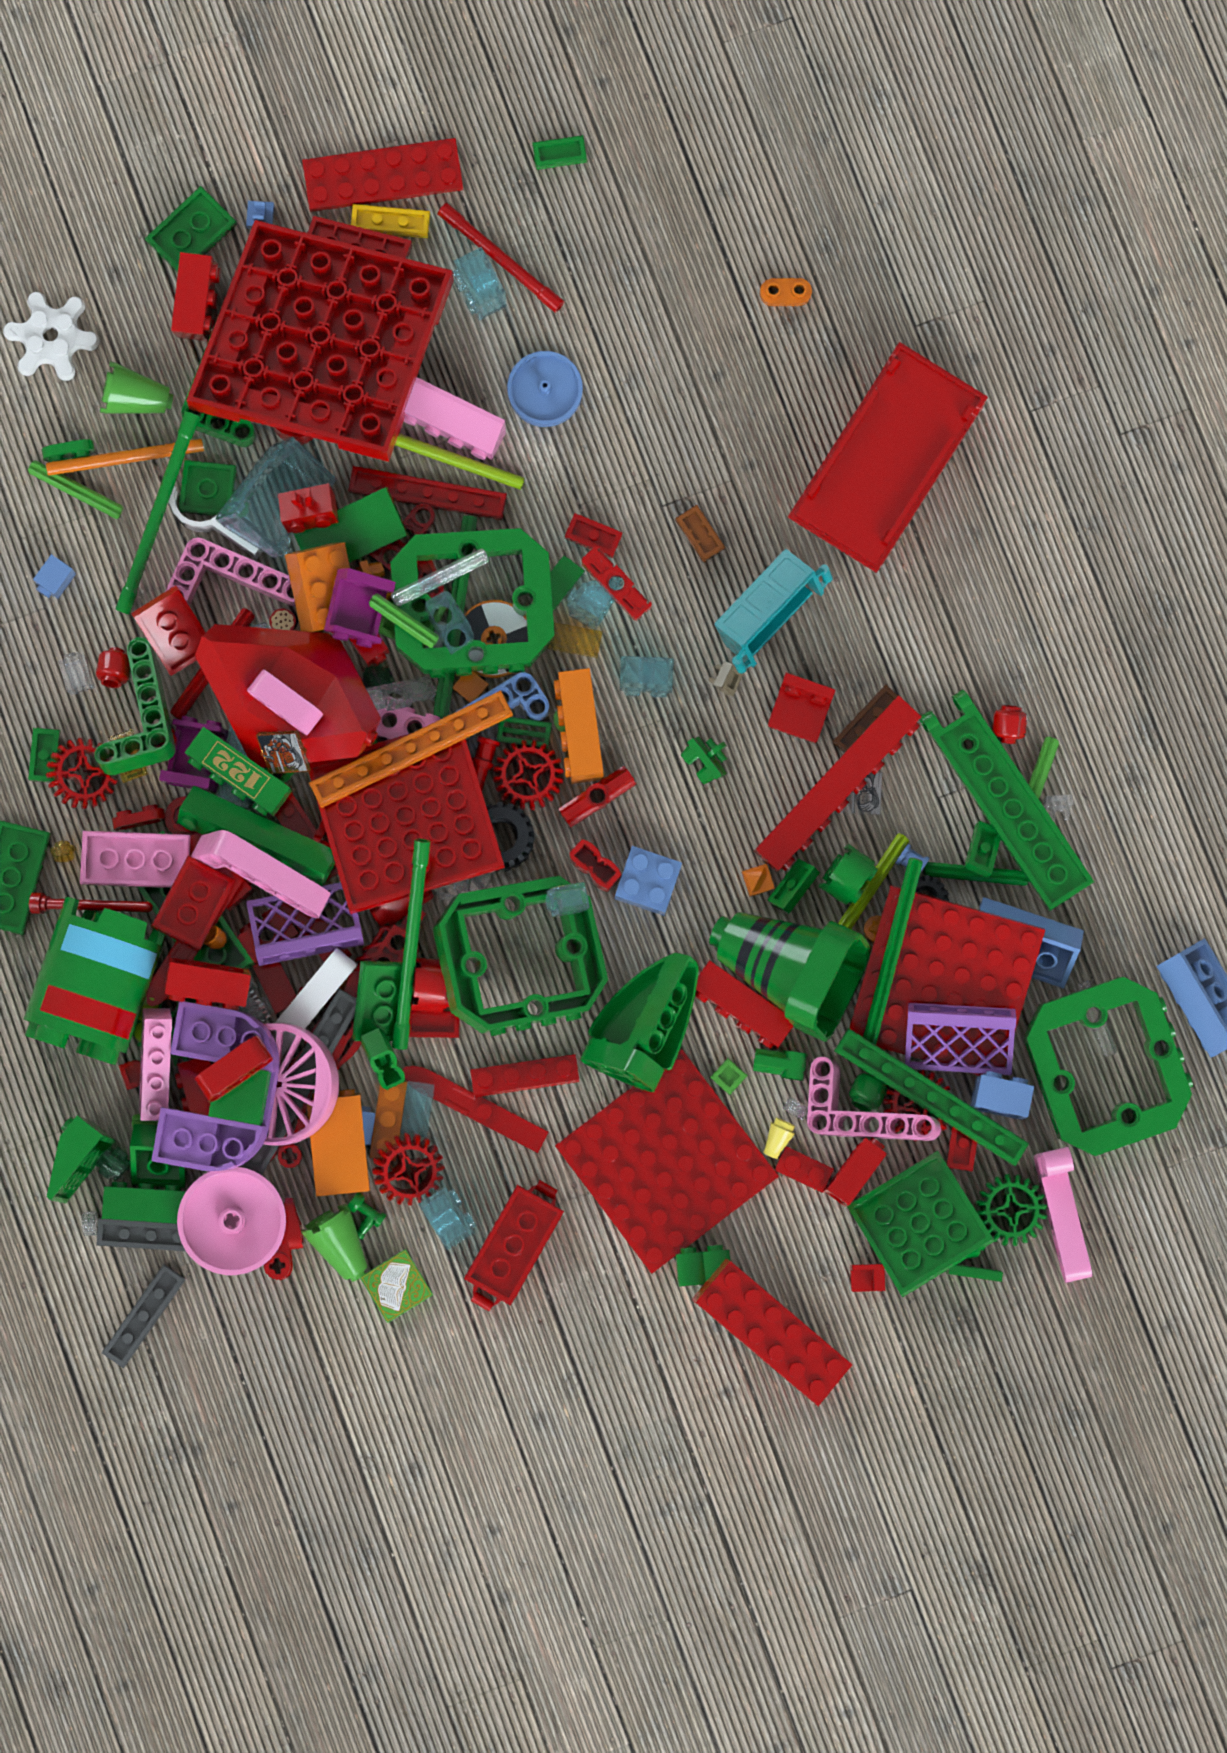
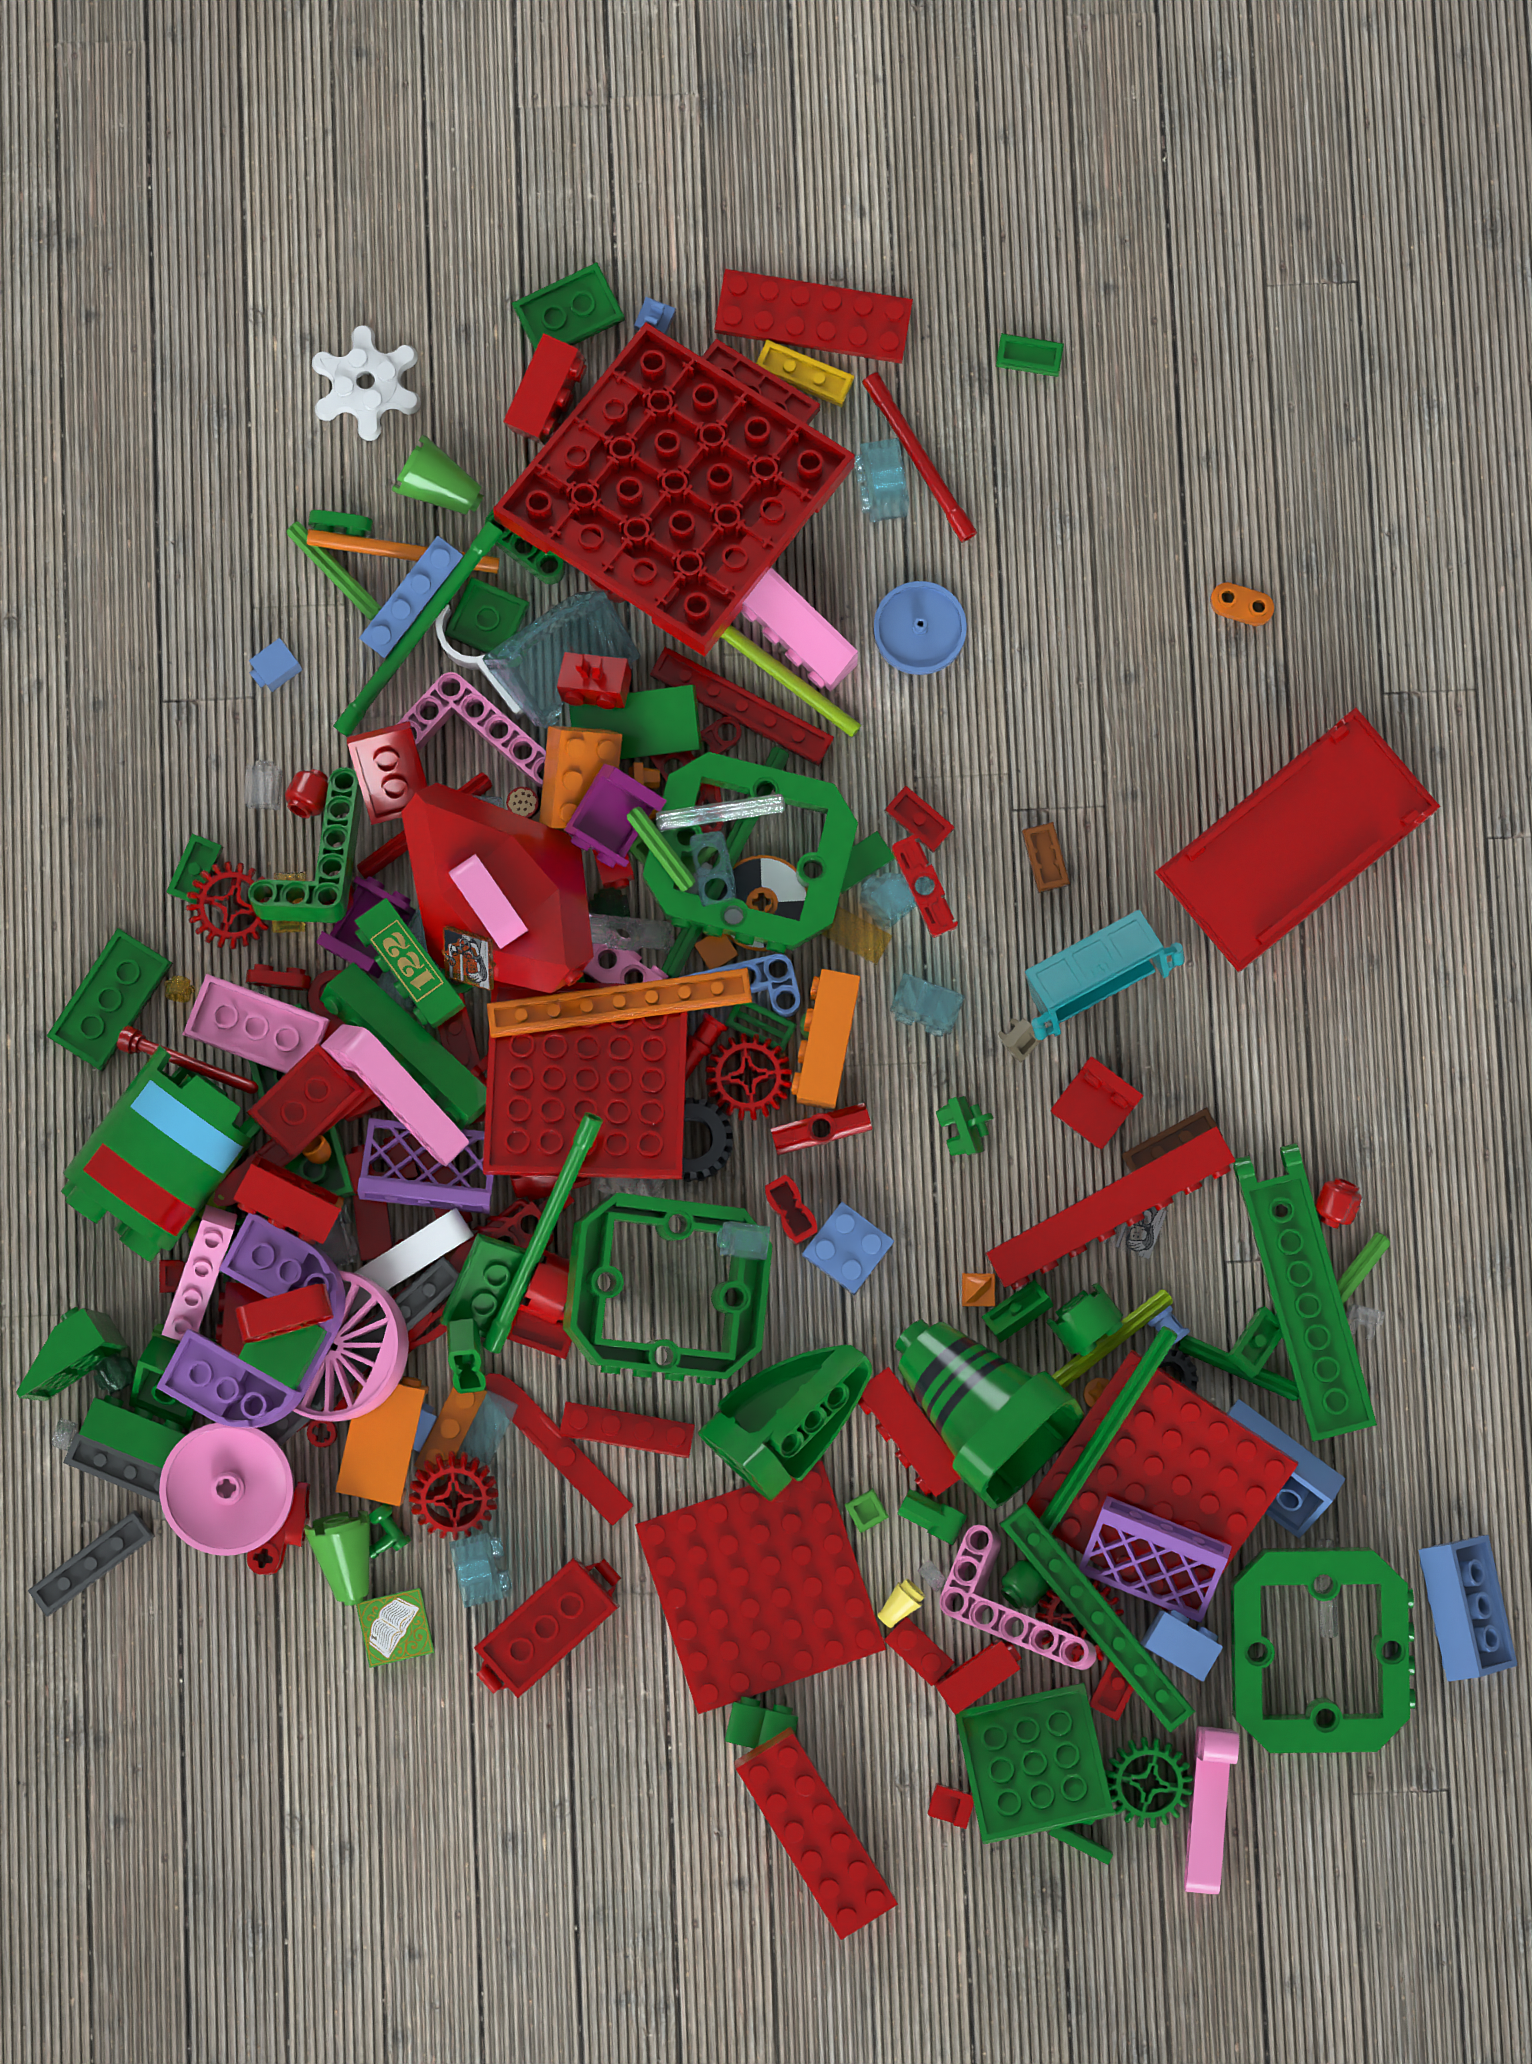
camera: 30 degrees right, 0 degrees up
(144, 489) = (411, 597): none -> medium blue brick

